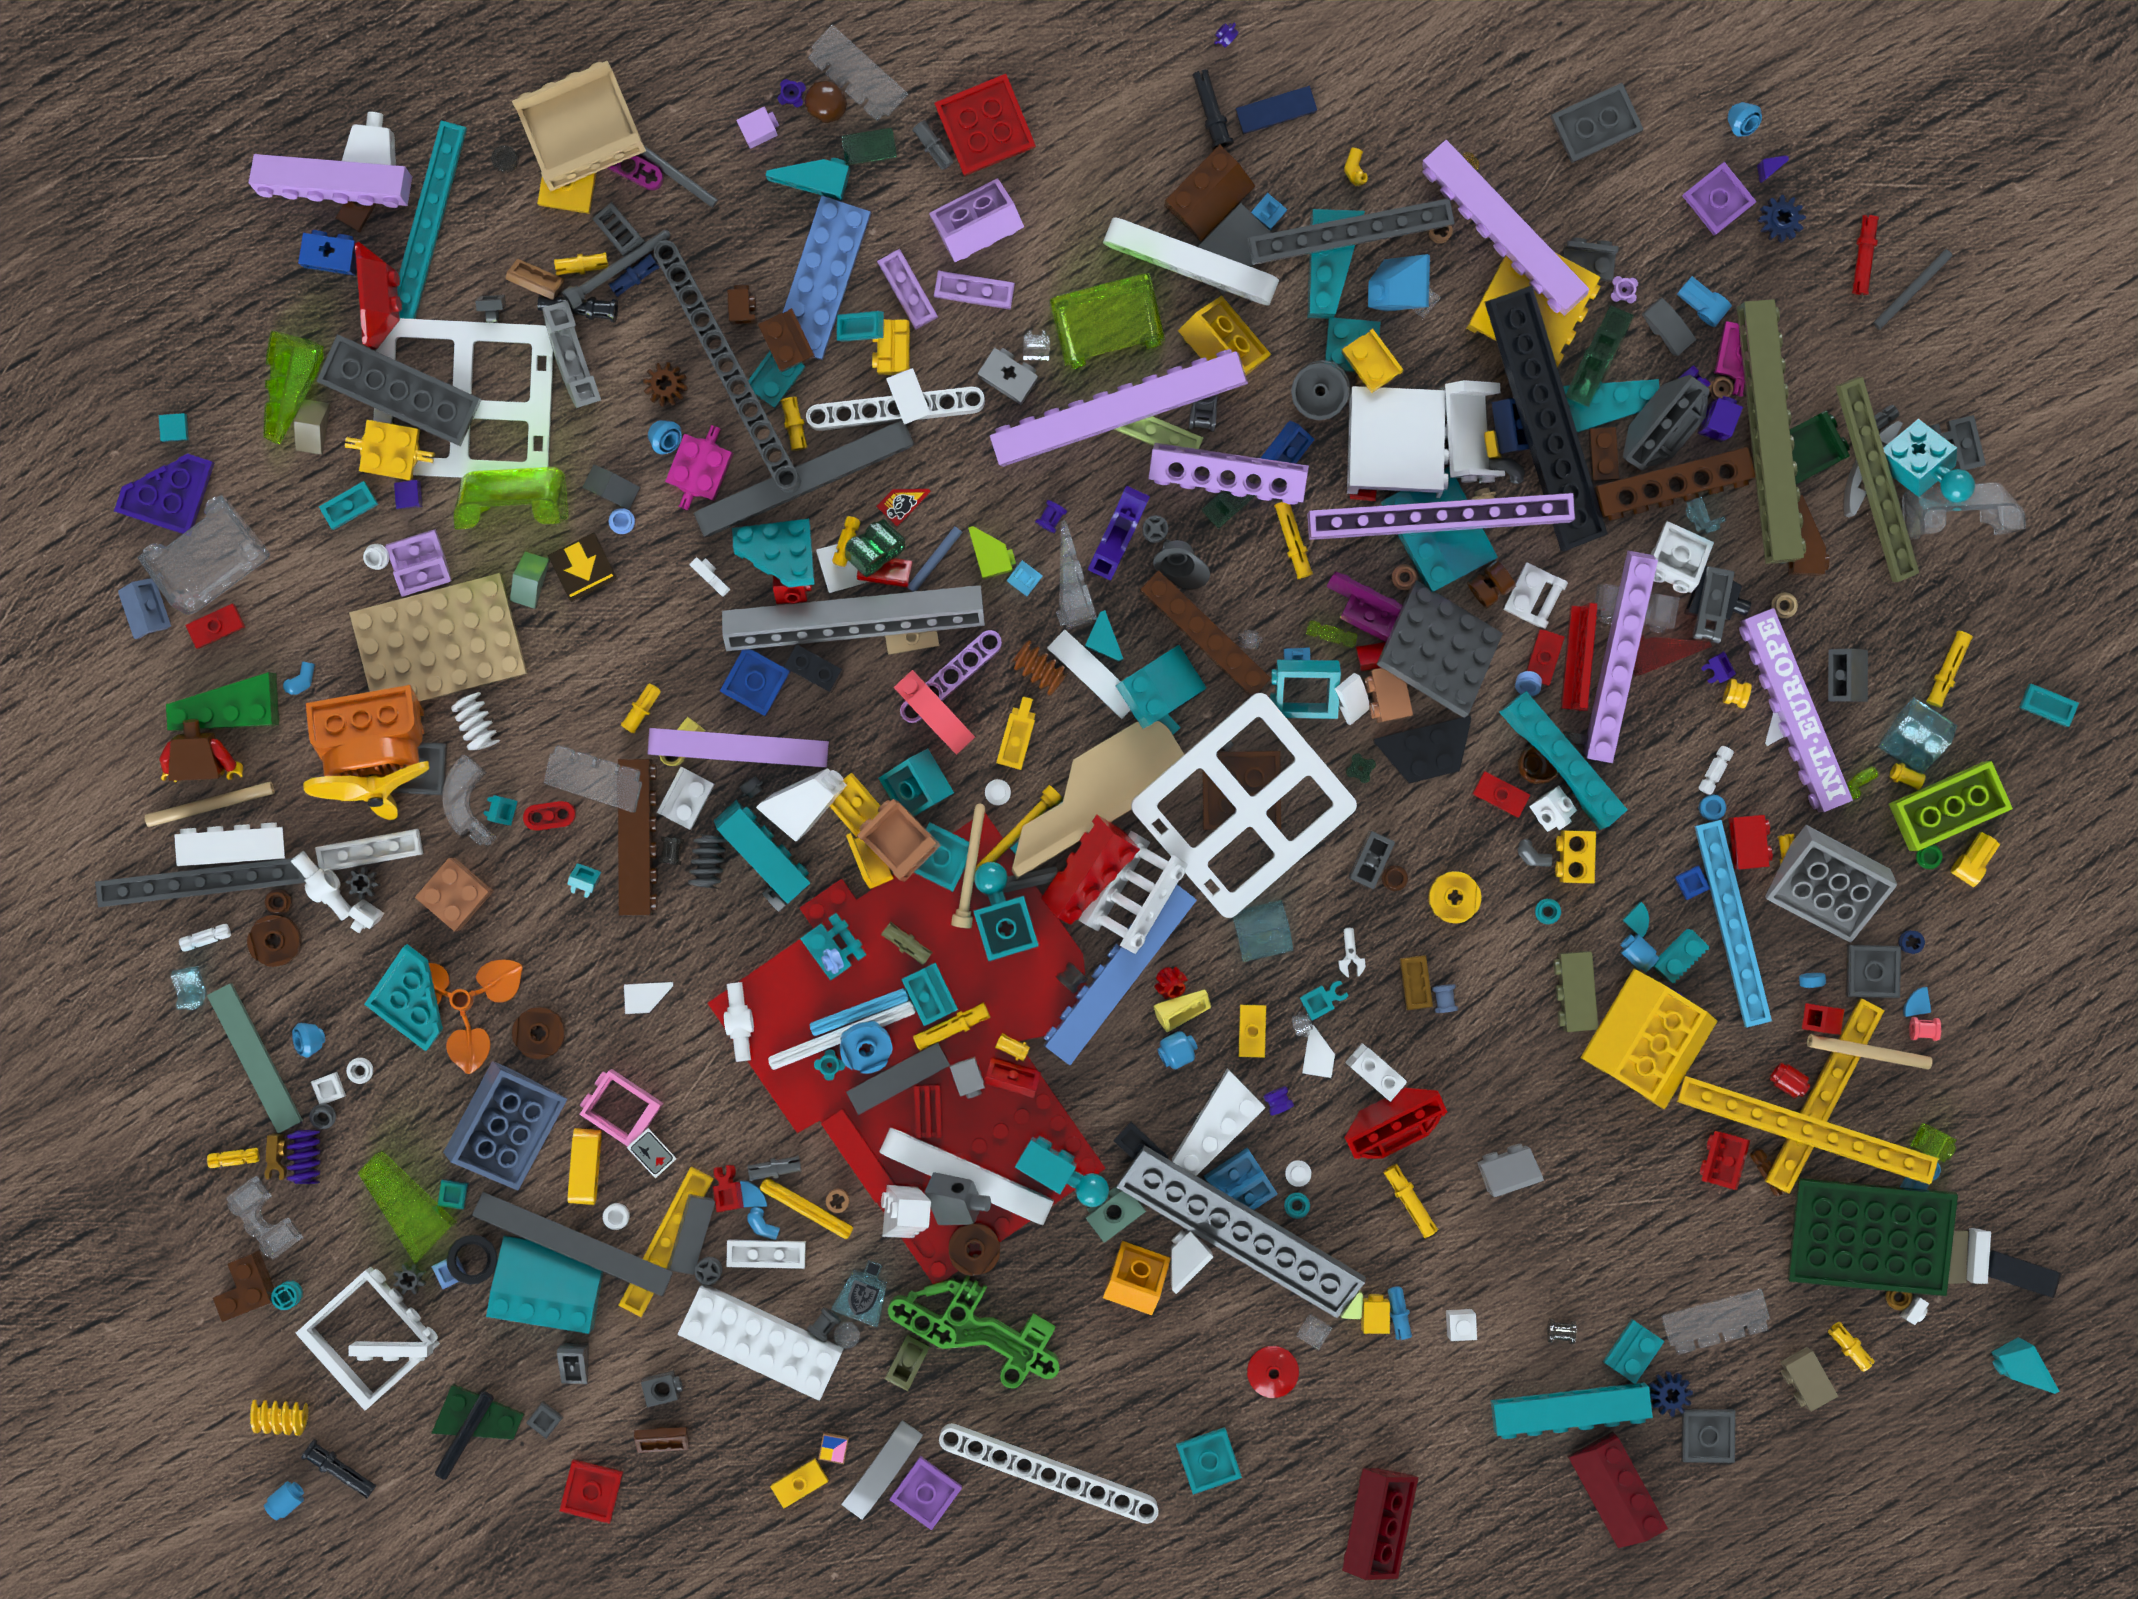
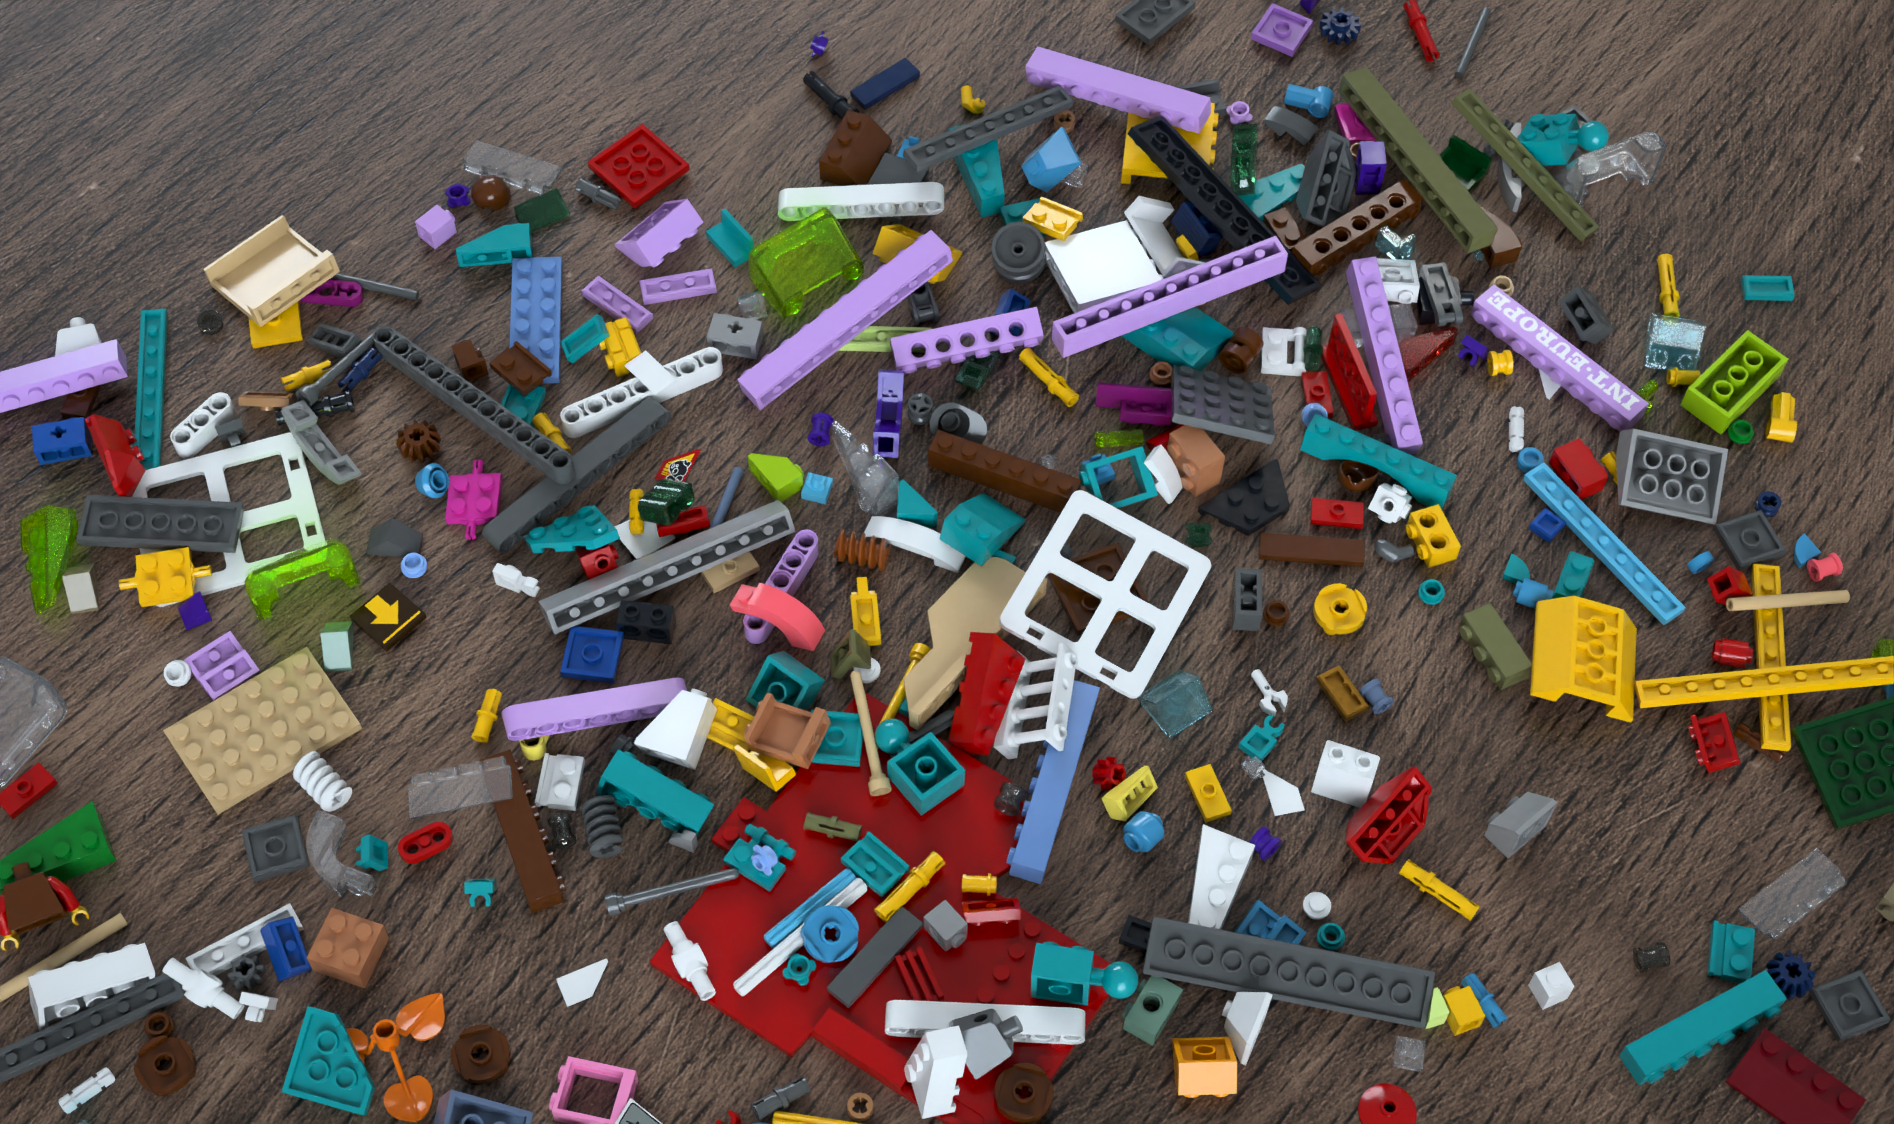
camera: 25 degrees left, 30 degrees down
(301, 682) = (128, 810): dark azure arm -> none
(348, 505) = (137, 638): teal plate -> none
(366, 746) = (217, 824): orange brick -> none
(402, 872) = (285, 948): none -> blue slope
(453, 287) = (191, 435): none -> white beam
(696, 938) = (617, 902): none -> dark grey piece
(986, 778) = (849, 653): none -> olive slope
(1044, 256) = (731, 239): none -> teal panel
(1459, 823) = (1312, 549): none -> reddish brown tile
(1562, 608) = (1313, 348): none -> clear green axle

